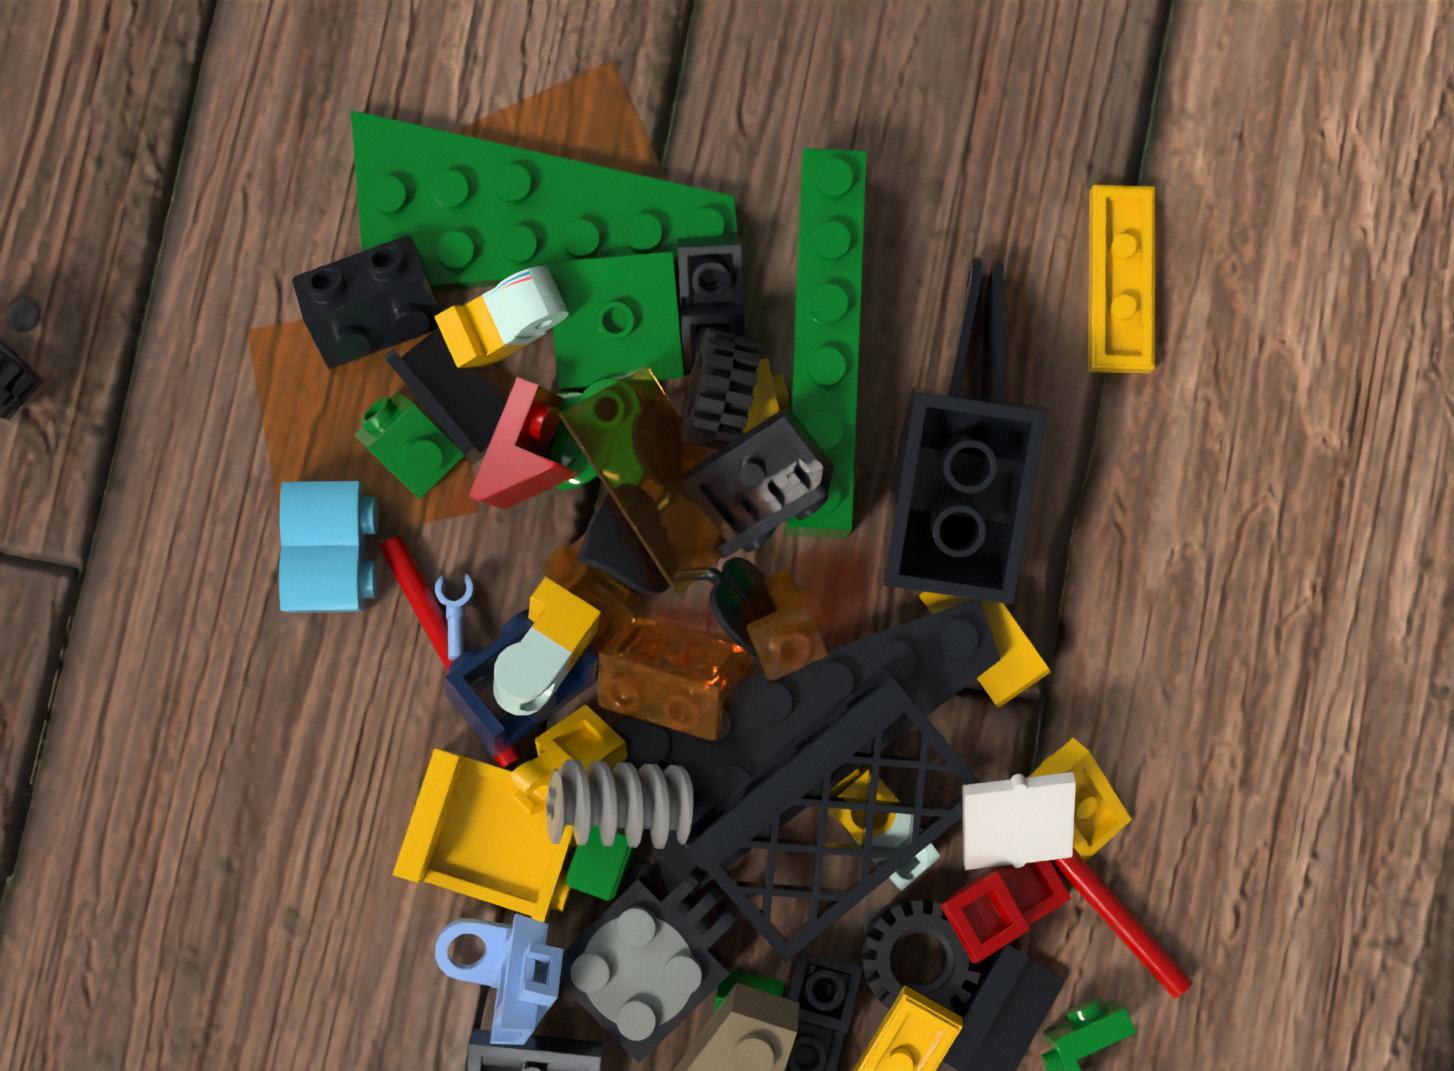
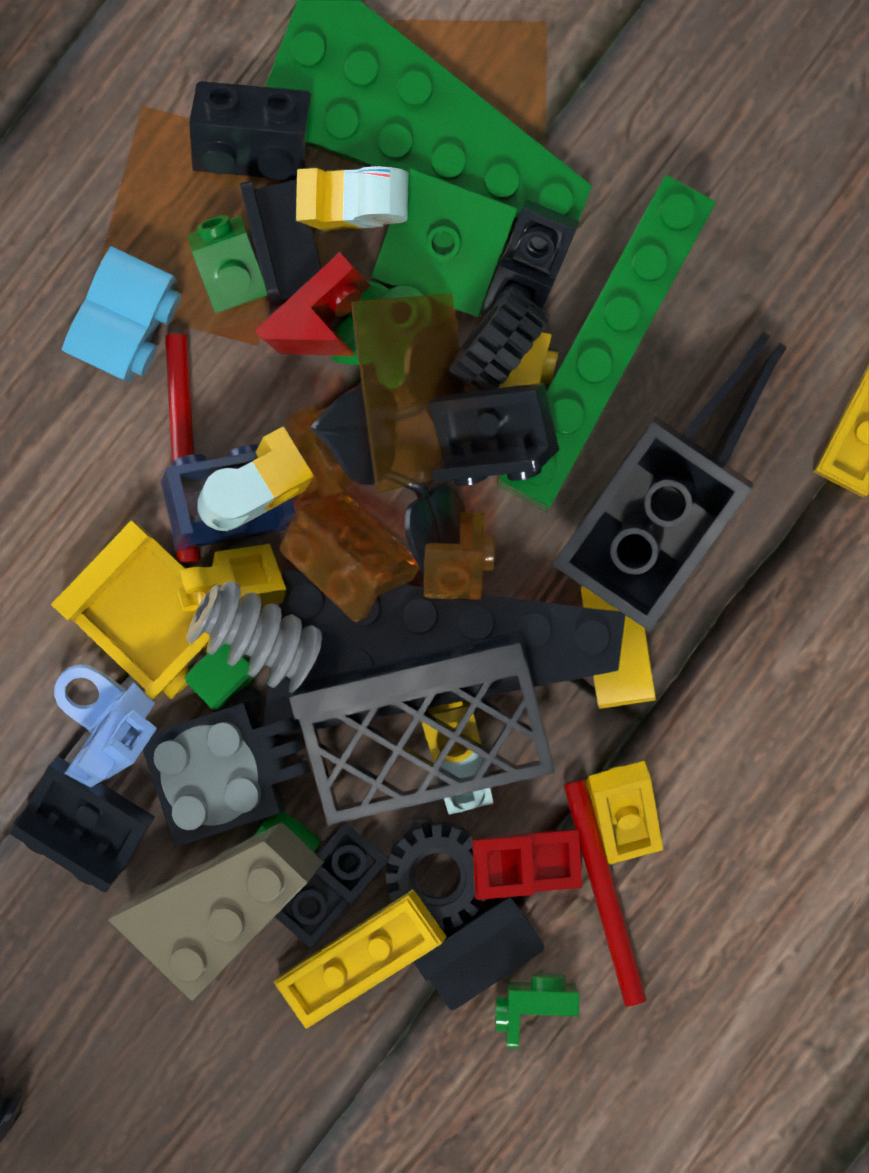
camera: 30 degrees right, 5 degrees up
(455, 614) = (200, 420): light blue hand -> none
(1018, 820) = (567, 804): white piece -> none

